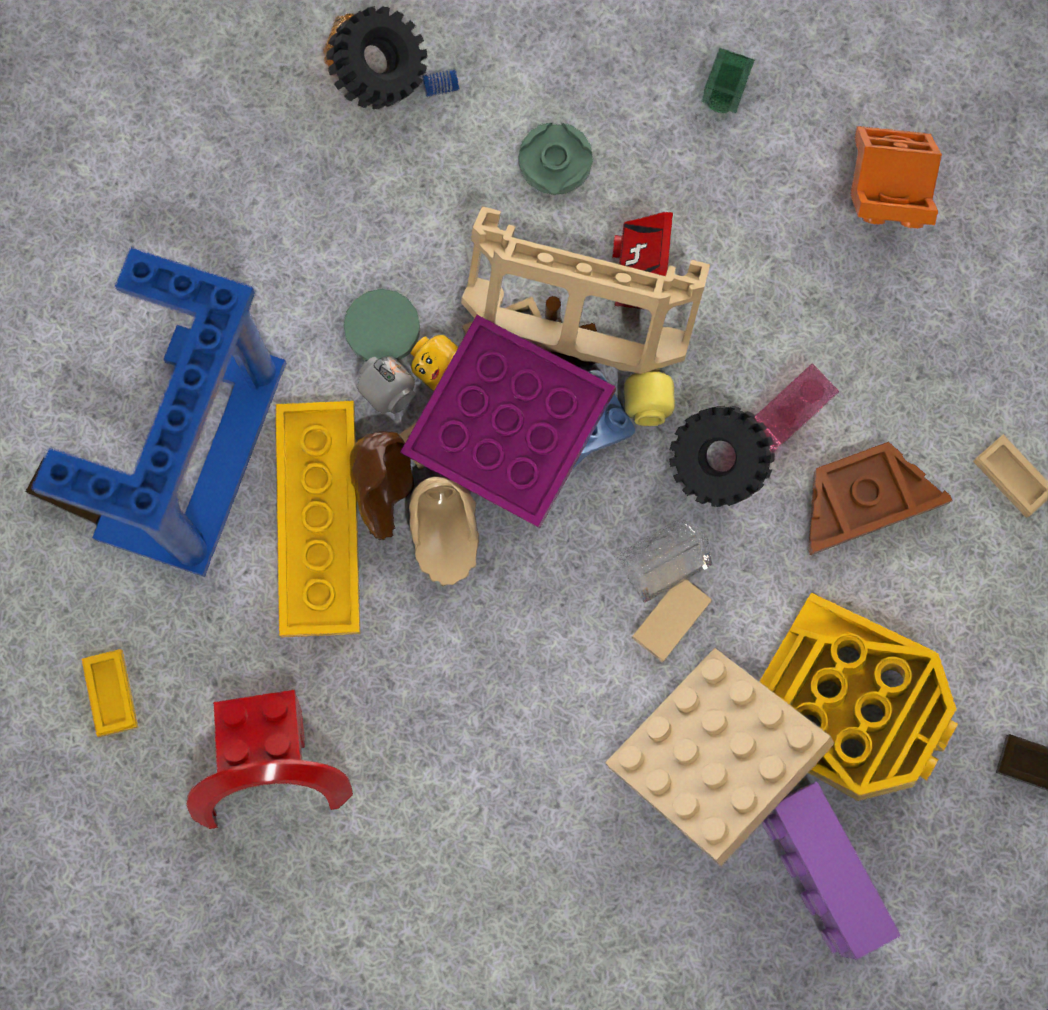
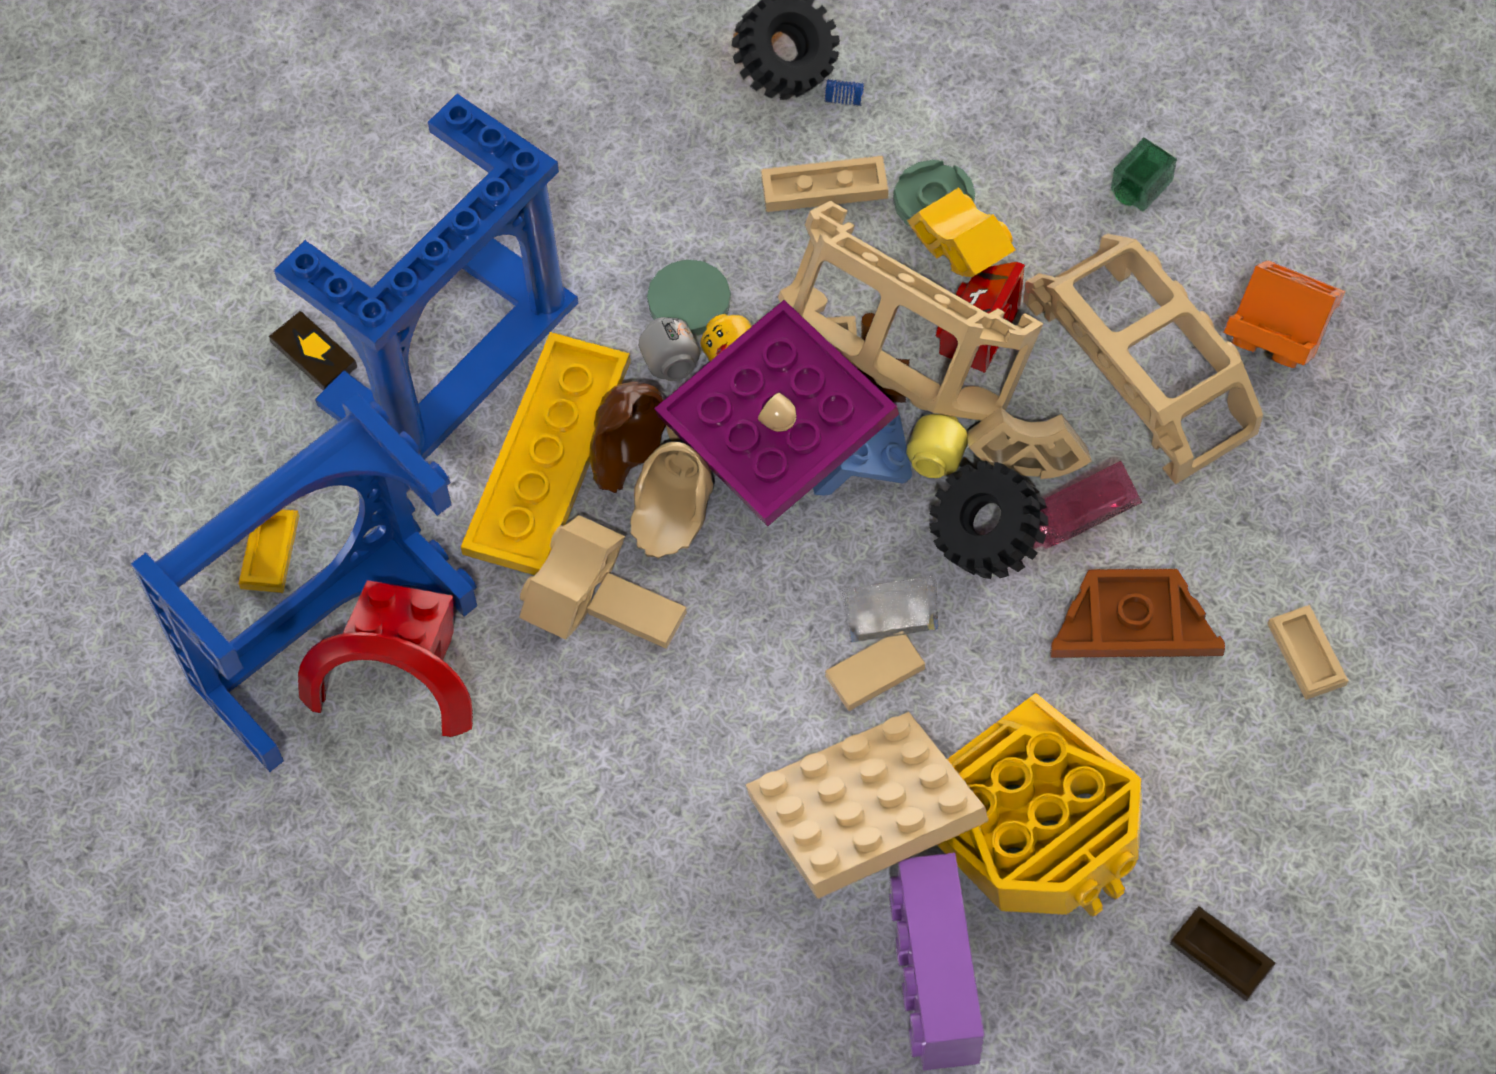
camera: 25 degrees right, 15 degrees down
(215, 661) = (354, 453): none -> blue arch
(385, 629) = (565, 583): none -> tan brick
(451, 636) = (637, 610): none -> tan tile
(458, 178) = (823, 182): none -> tan plate
(517, 428) = (778, 413): none -> tan hinge
(605, 194) = (962, 234): none -> yellow brick
(728, 373) = (1029, 448): none -> tan brick
(773, 266) = (1112, 357): none -> tan windscreen

